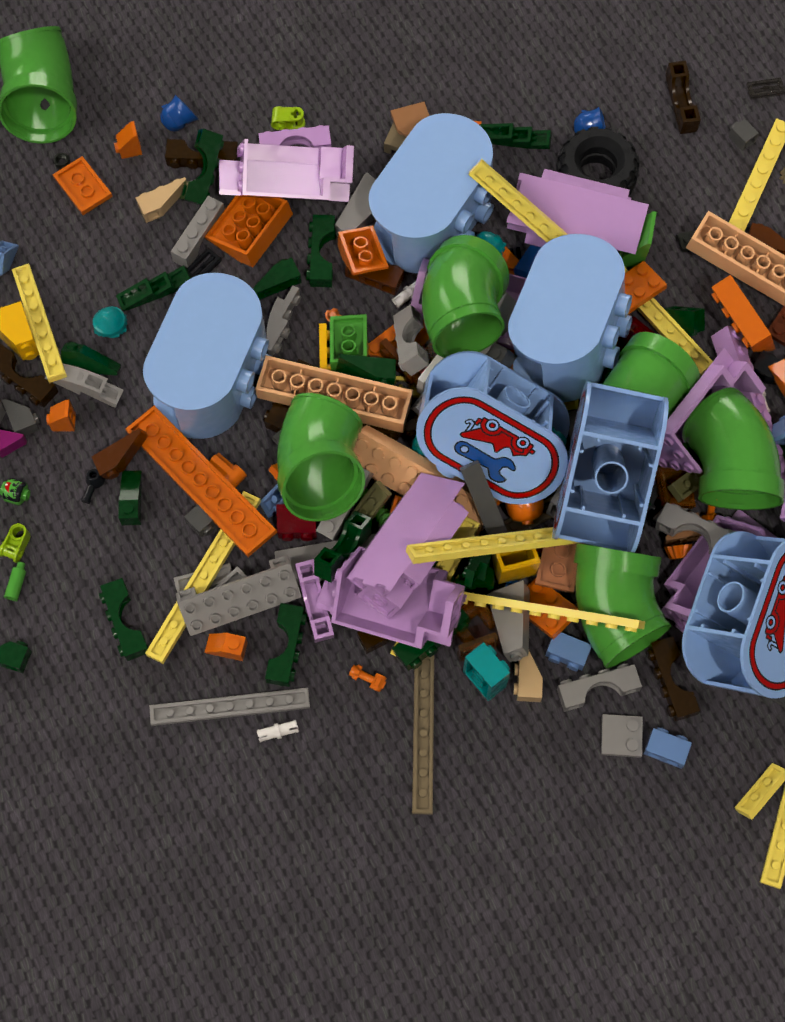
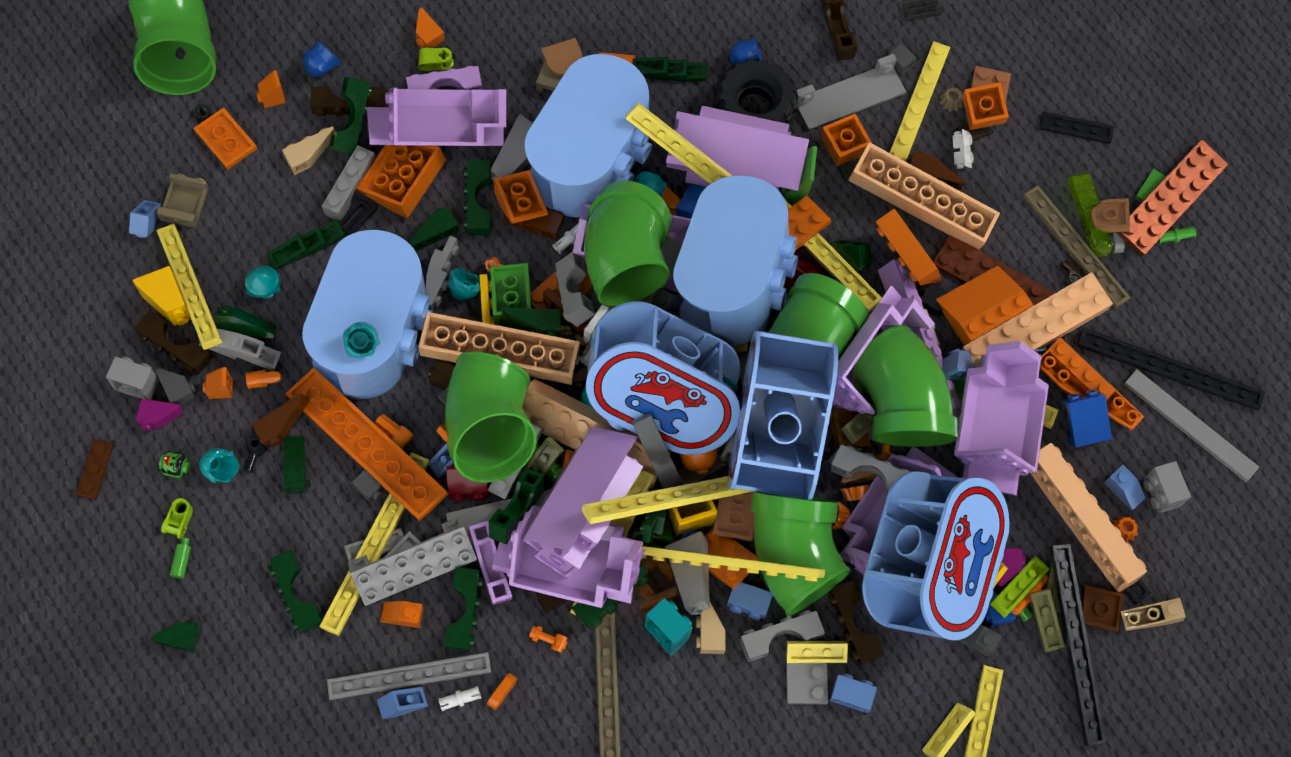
camera: 10 degrees left, 0 degrees up
(39, 242) = (184, 200): none -> dark tan panel
(57, 494) = (219, 465): none -> teal hair
(103, 414) = (261, 379): none -> orange hinge
(198, 376) = (360, 340): none -> teal hair
(220, 731) = (401, 702): none -> medium blue slope
(282, 91) = (427, 31): none -> orange slope
(303, 332) = (463, 284): none -> teal hair
(319, 726) = (502, 691): none -> orange beam
(633, 705) = (816, 651): none -> light yellow plate
(664, 573) = (842, 515): none -> orange piece
(684, 209) = (845, 139): none -> orange brick
(691, 167) = (850, 95): none -> light grey bracket

